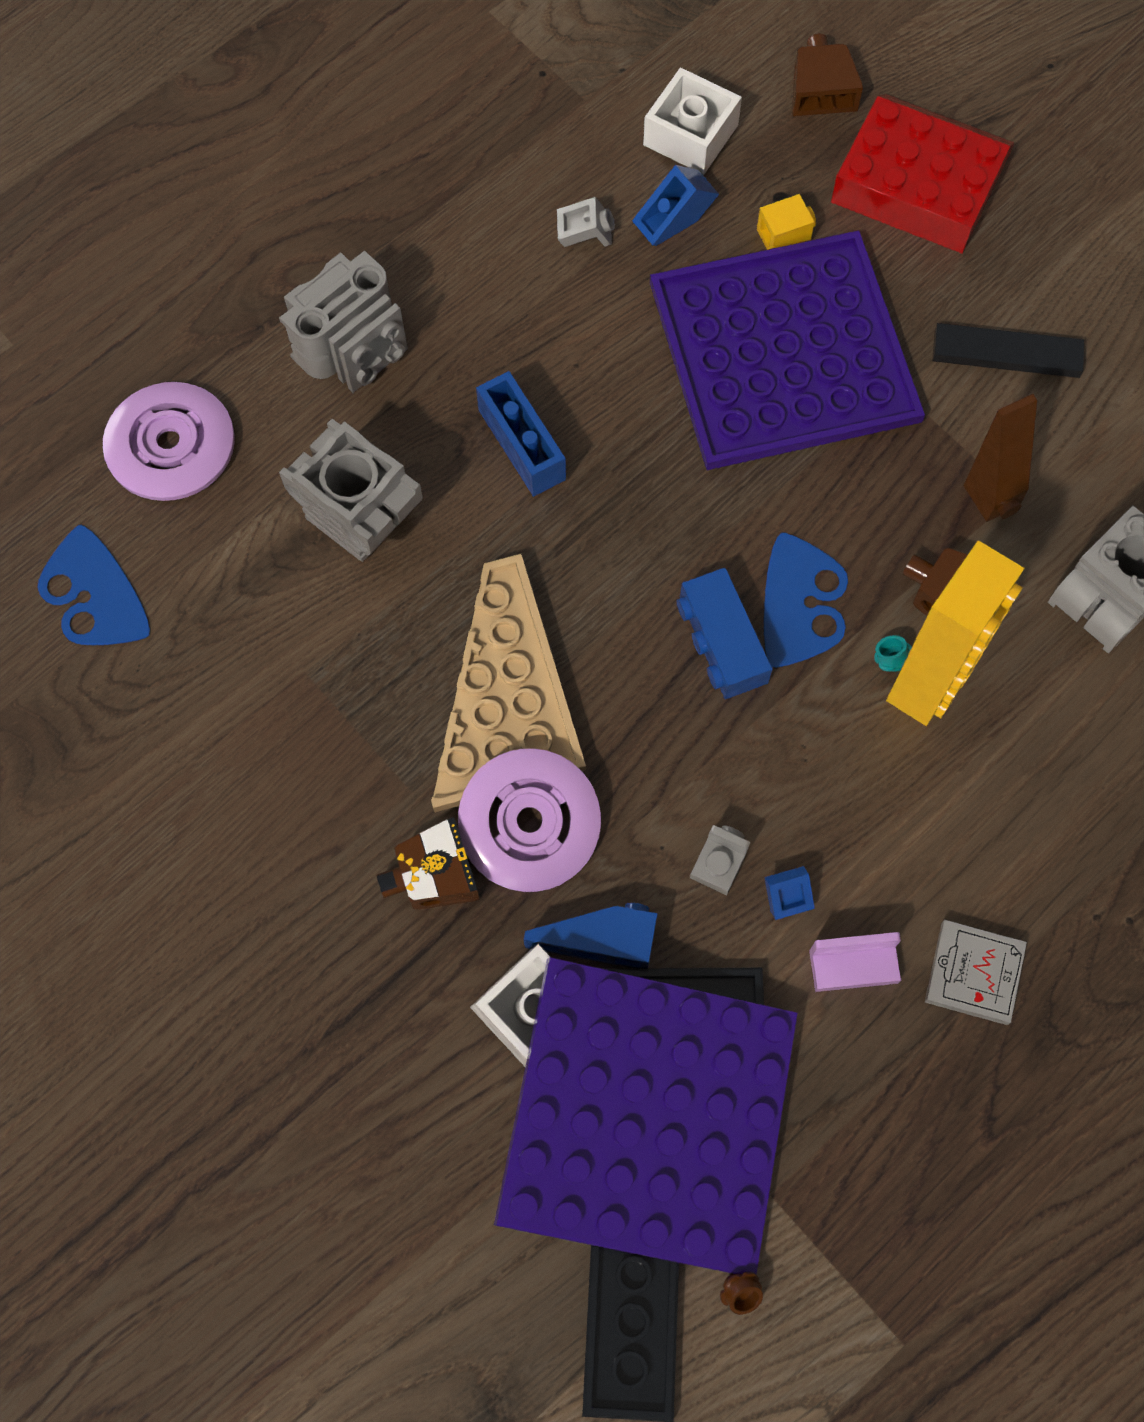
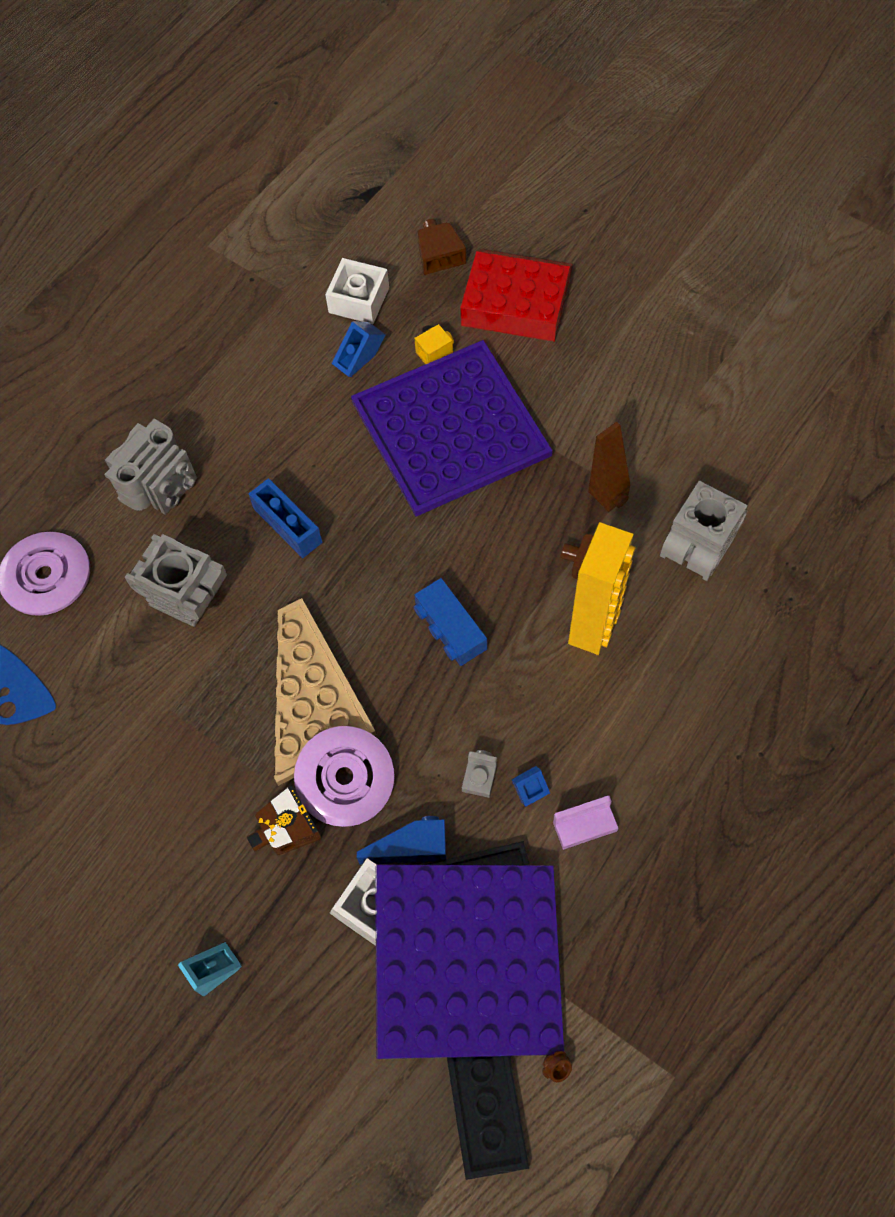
camera: 10 degrees left, 5 degrees down
(290, 1045) = (210, 968): none -> medium azure slope
(583, 222) = (299, 370): light grey bracket -> none
(786, 618) = (489, 602): blue piece -> none
(892, 653) = (563, 611): teal plate -> none
(975, 972) = (666, 811): light grey tile -> none
(1008, 350) = (598, 397): black tile -> none

